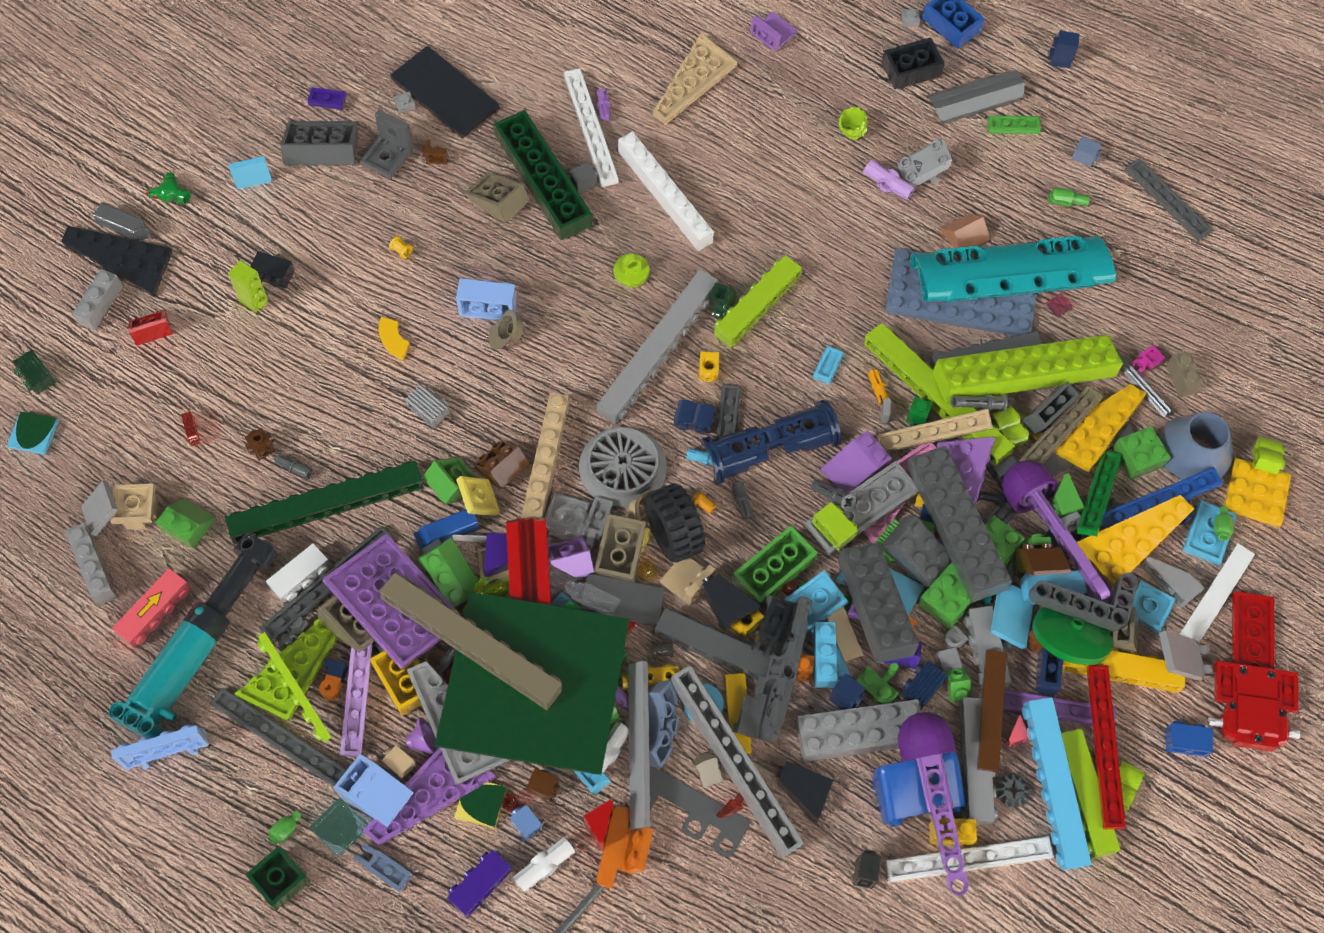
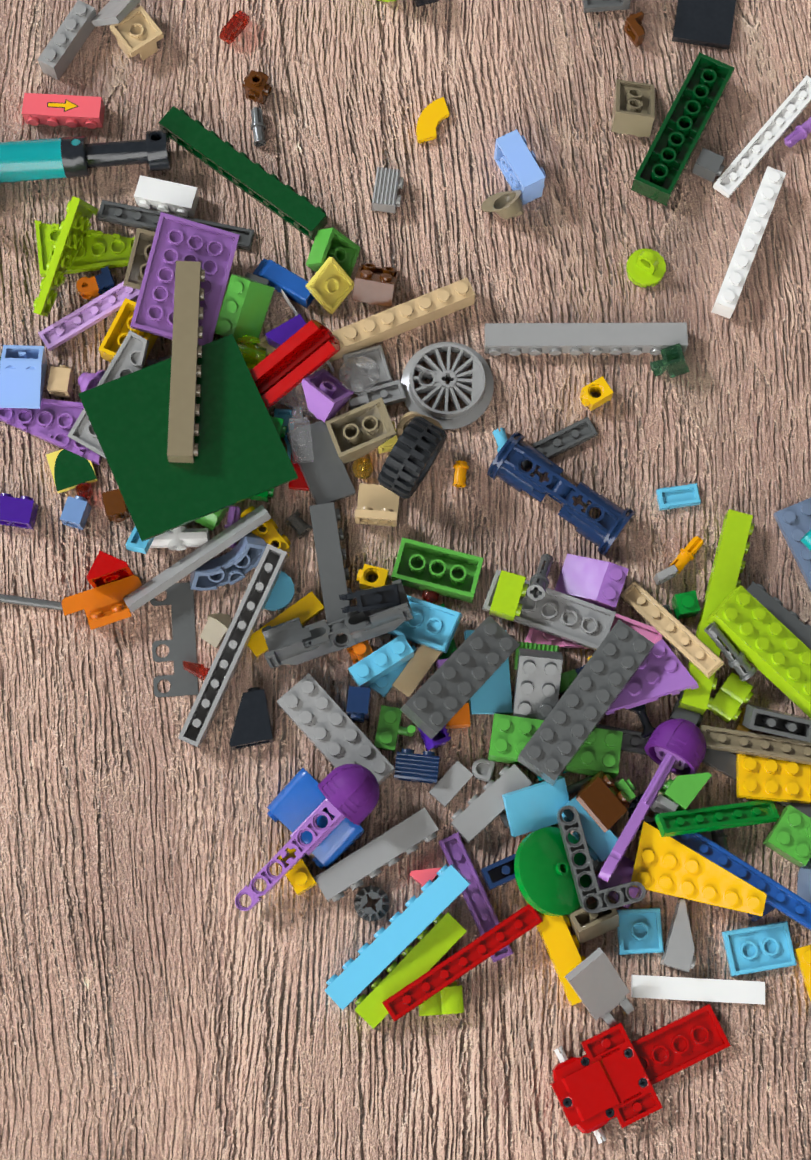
camera: 60 degrees right, 10 degrees up
(185, 522) = (152, 81): bright green slope -> none
(278, 737) = (24, 277): dark grey tile -> none
(293, 632) = (115, 227): dark grey axle -> none
(401, 247) = (522, 66): yellow bush -> none
(543, 864) = (50, 549): white piece -> none
(694, 416) = (537, 413): dark blue brick -> none
(727, 601) = (370, 547): black slope -> none
(742, 500) = (486, 505): dark grey axle -> none
(757, 301) = (696, 394): lime brick -> none
(867, 869) = (211, 814): pearl dark grey brick -> none
(959, 685) = (437, 797): bright green bracket -> none
(973, 858) = (285, 902): white tile -> none
(992, 711) = (427, 839): reddish brown tile -> none
(1189, 739) = (526, 1038): blue brick -> none
(1223, 524) = (772, 956): bright green plant -> none

